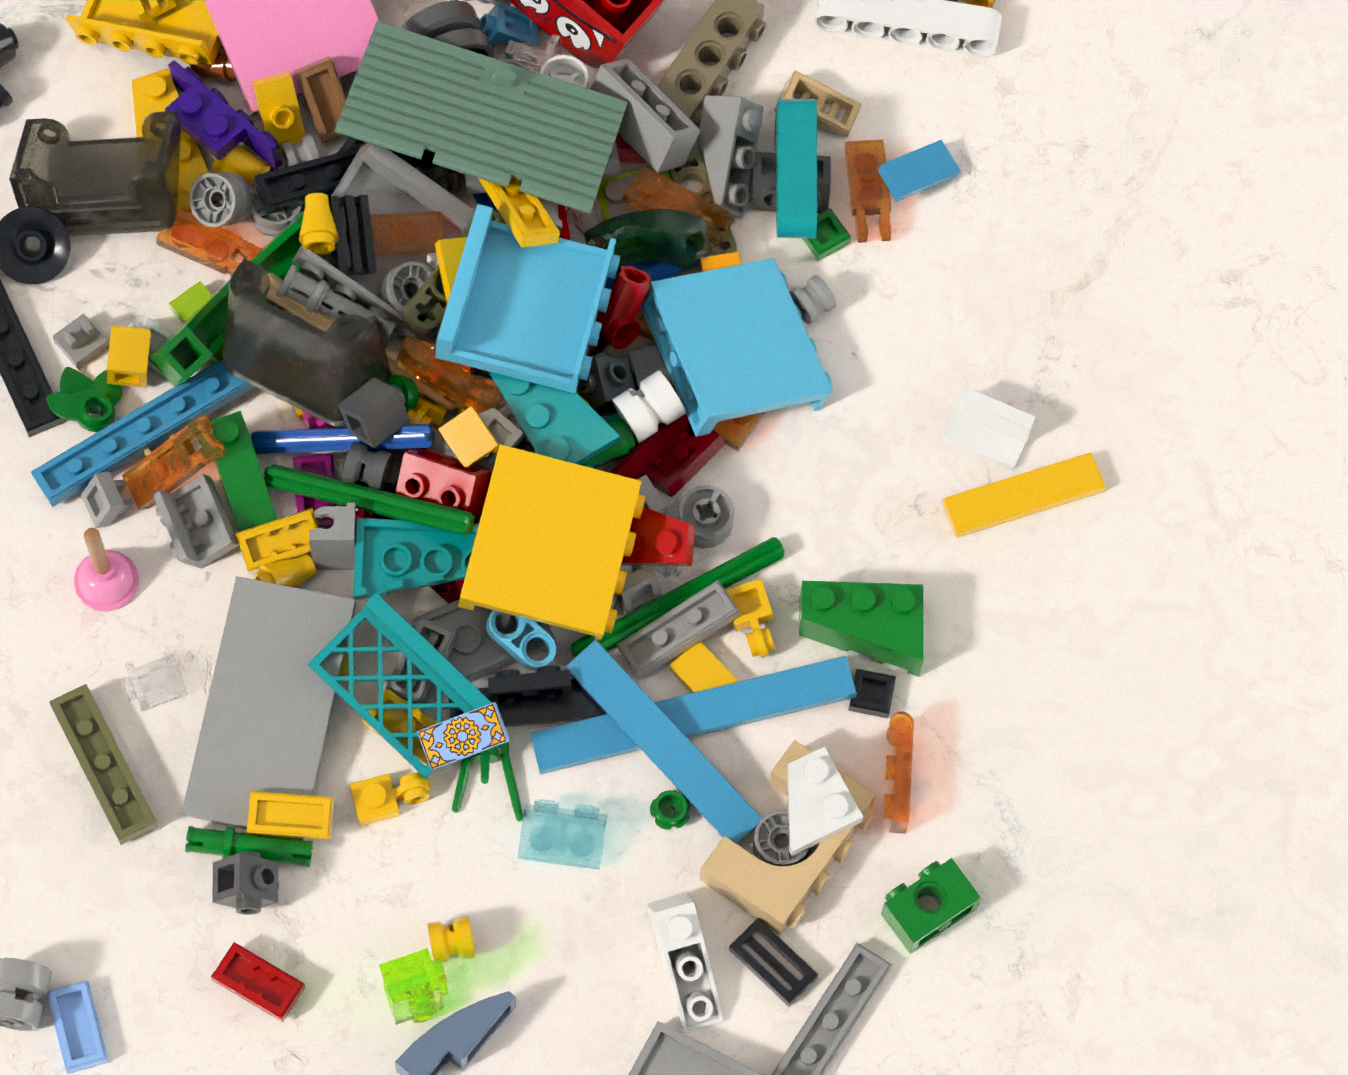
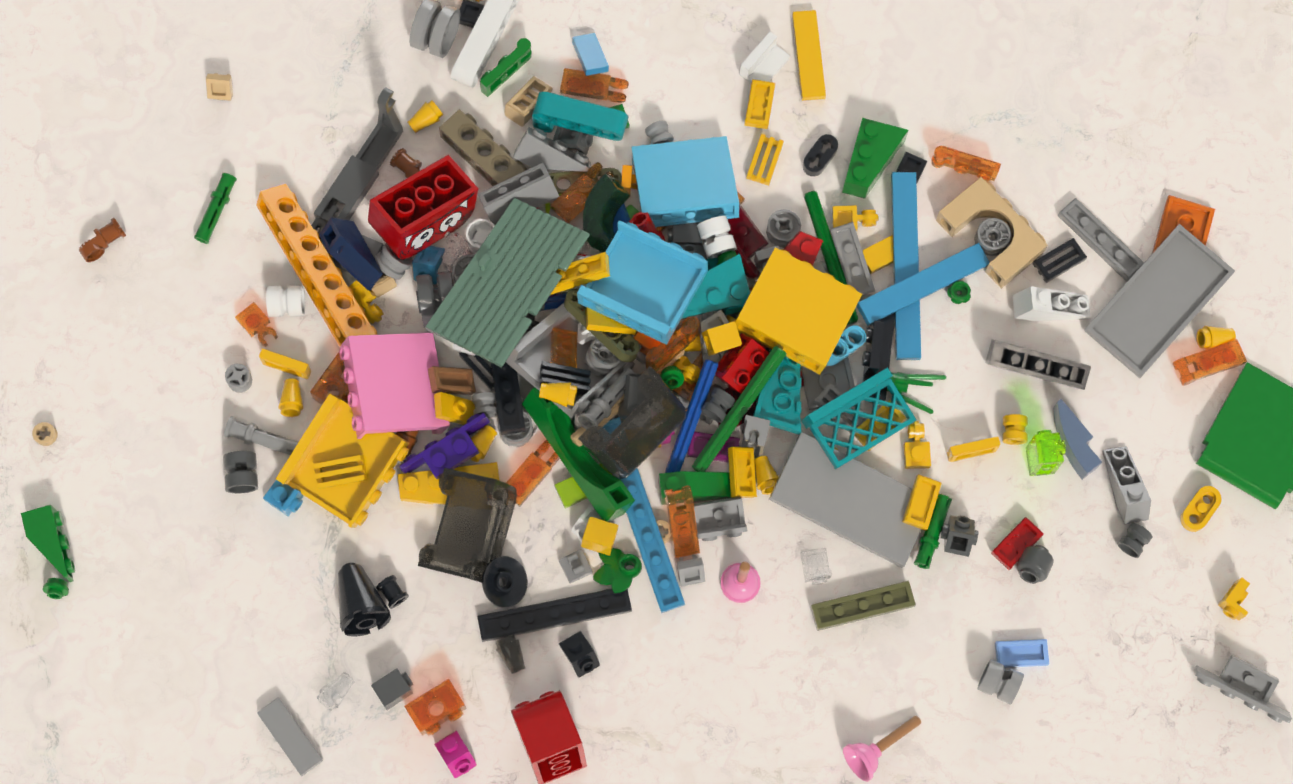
camera: 75 degrees left, 5 degrees up
(206, 197) = (515, 462): light grey wheel -> none
(227, 1014) = (1035, 564): none -> dark grey head
(374, 412) = (690, 389): dark grey brick -> none
(401, 880) = (973, 449): none -> yellow tile
(463, 736) = (902, 389): tile -> none
(562, 834) = (963, 353): clear light blue bracket -> none
(569, 950) = (1038, 364): none -> brick
(817, 801) = (981, 206): white wing -> none
(819, 453) = (771, 142): none -> yellow tile
(852, 544) = (816, 152): none -> black beam
(860, 60) = (506, 67): none -> green plate
(911, 437) = (759, 104): none -> yellow plate
(917, 925) = (1048, 155): green brick -> none

